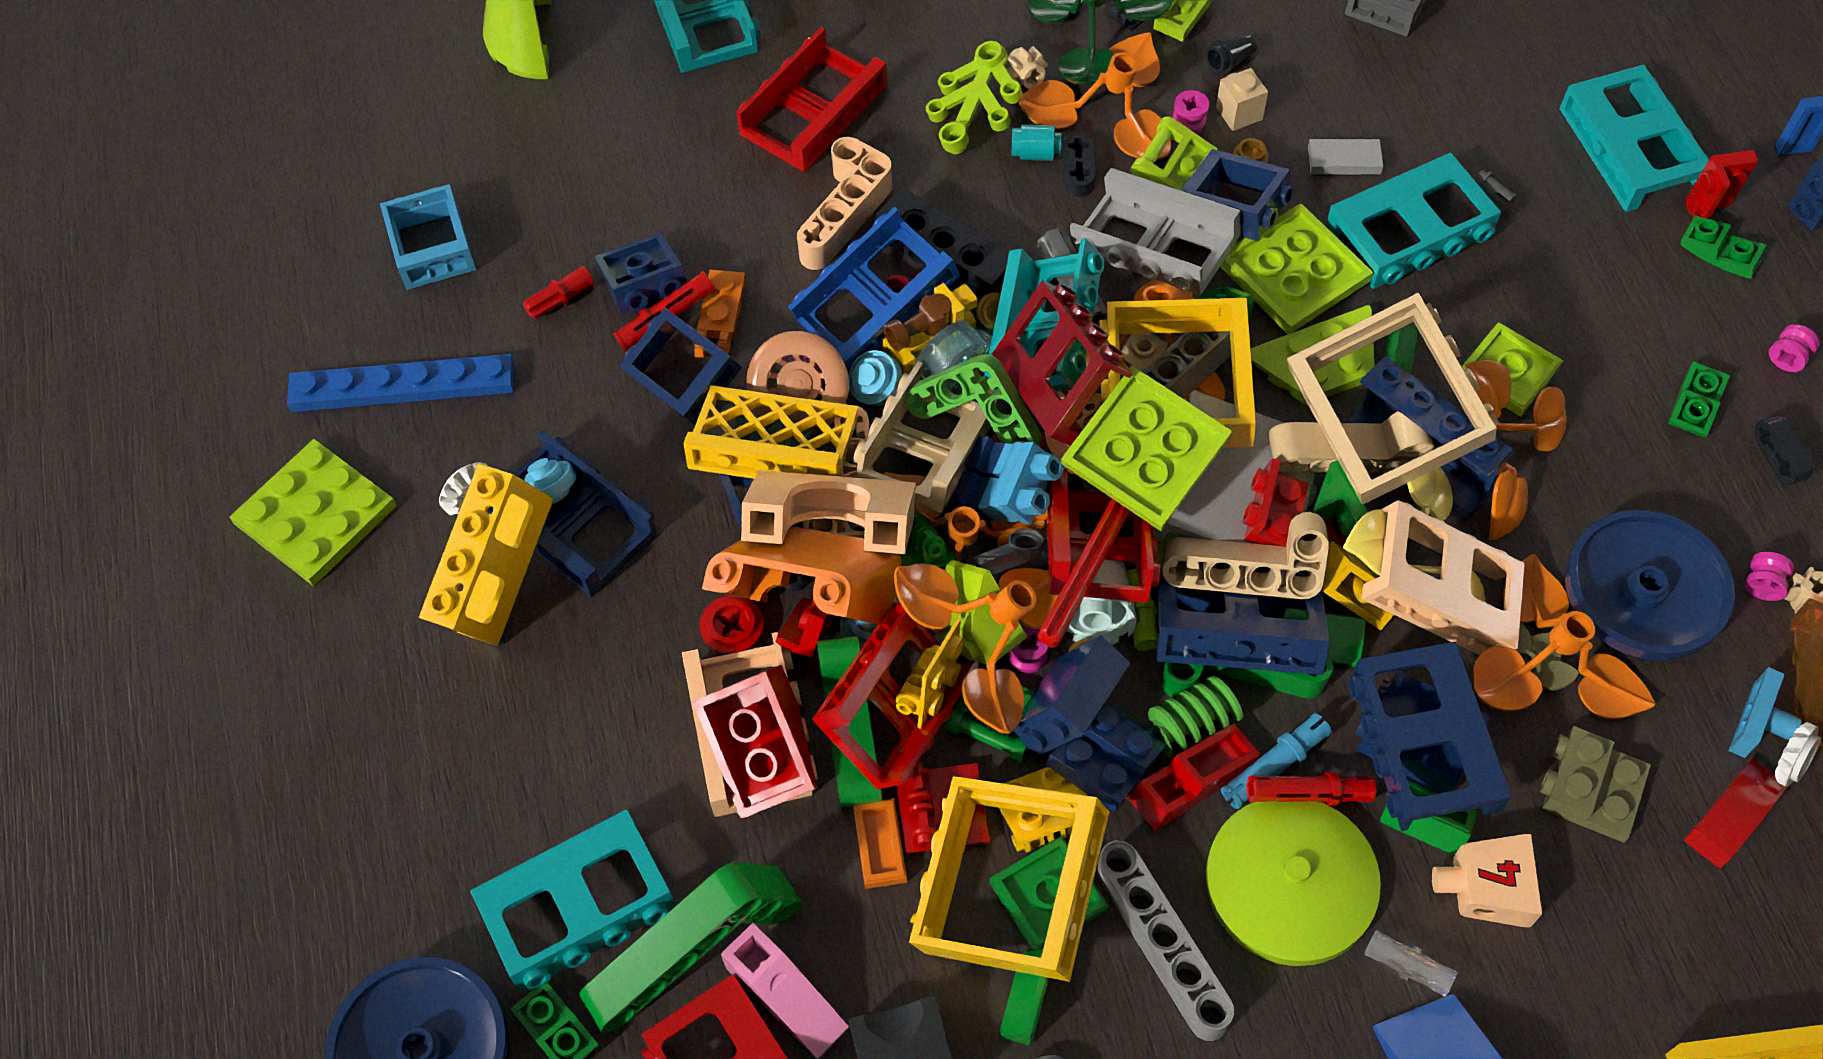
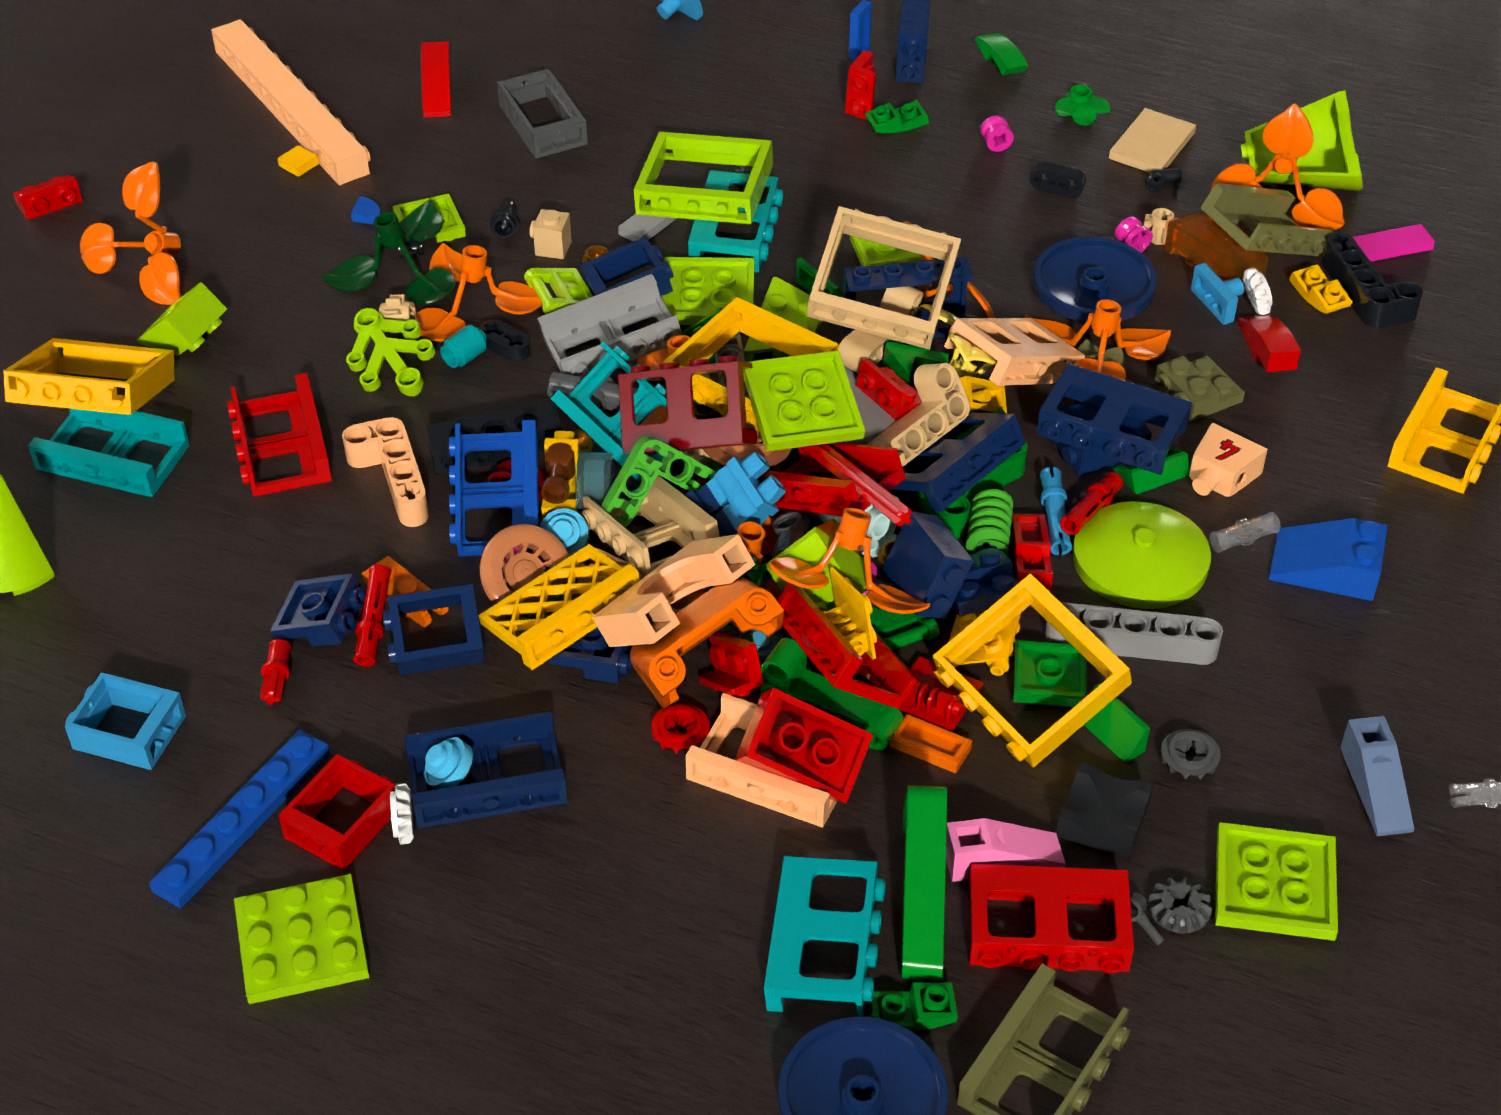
camera: 55 degrees left, 15 degrees down
(436, 417) = (319, 839): none -> red window
(487, 555) = (498, 811): yellow window -> none
(1191, 110) = (528, 258): dark pink wheel -> none
(1388, 188) = (699, 202): none -> lime window
(1614, 139) = (777, 106): teal window -> none
(1698, 399) = (987, 191): green slope -> none

